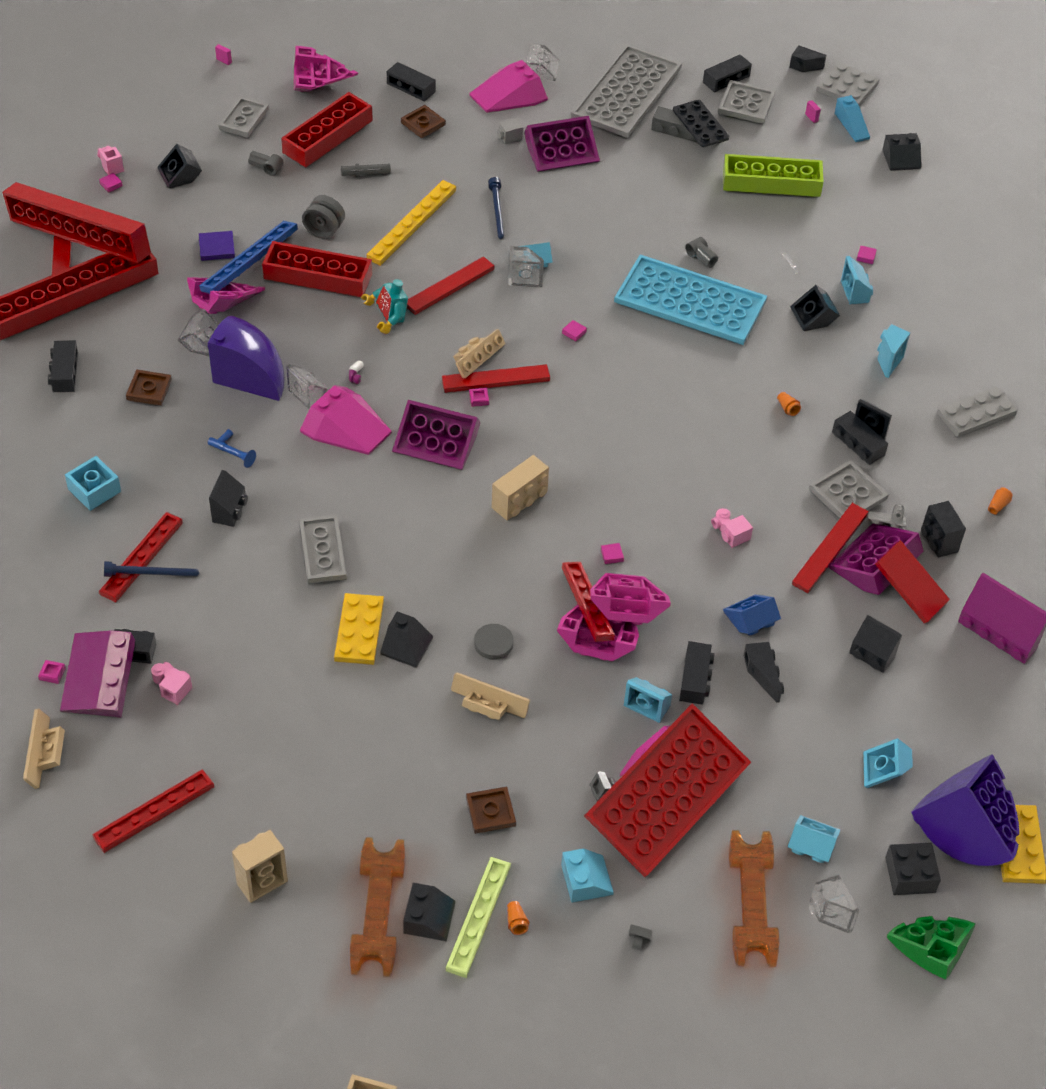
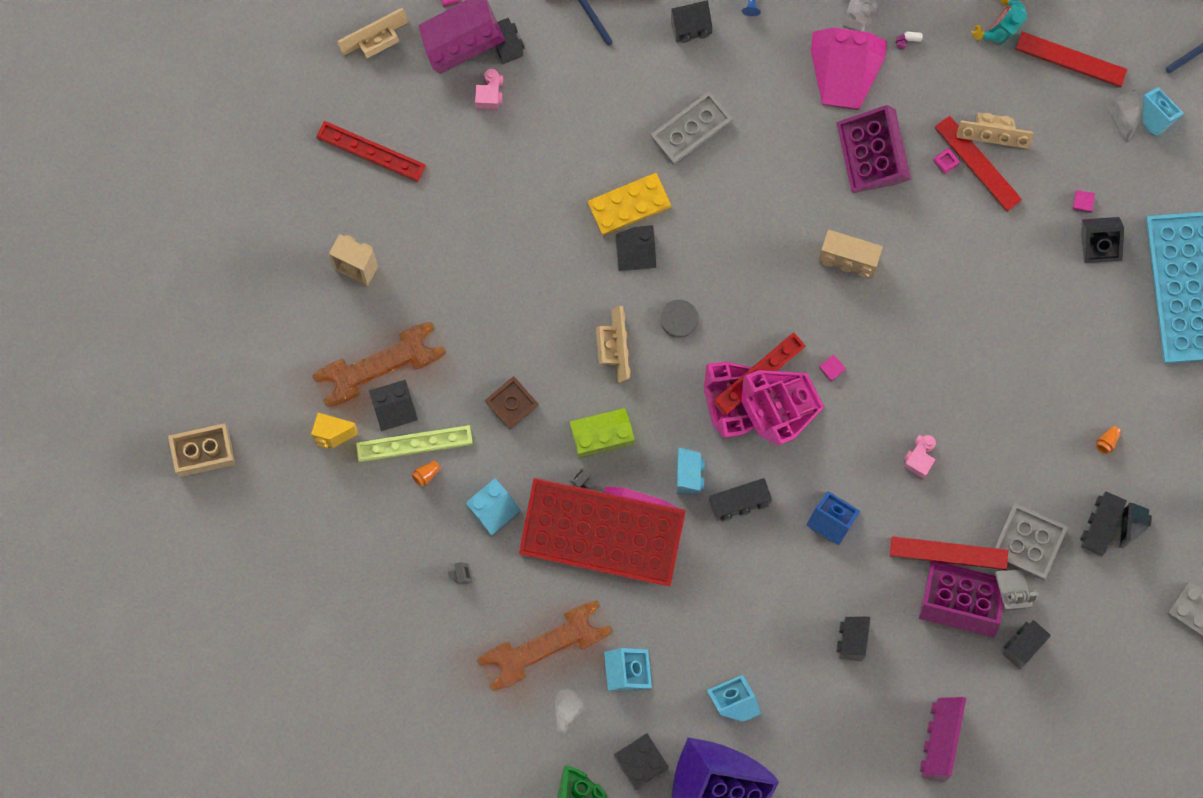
camera: 65 degrees right, 25 degrees up
(420, 978) = (332, 431): none -> yellow slope
(566, 749) = (602, 433): none -> lime slope
(615, 331) = (1102, 239): none -> black slope
(761, 666) = (782, 548): black slope -> none
(912, 581) = (944, 641): red tile -> none
(1000, 500) = (1104, 684): orange cone -> none

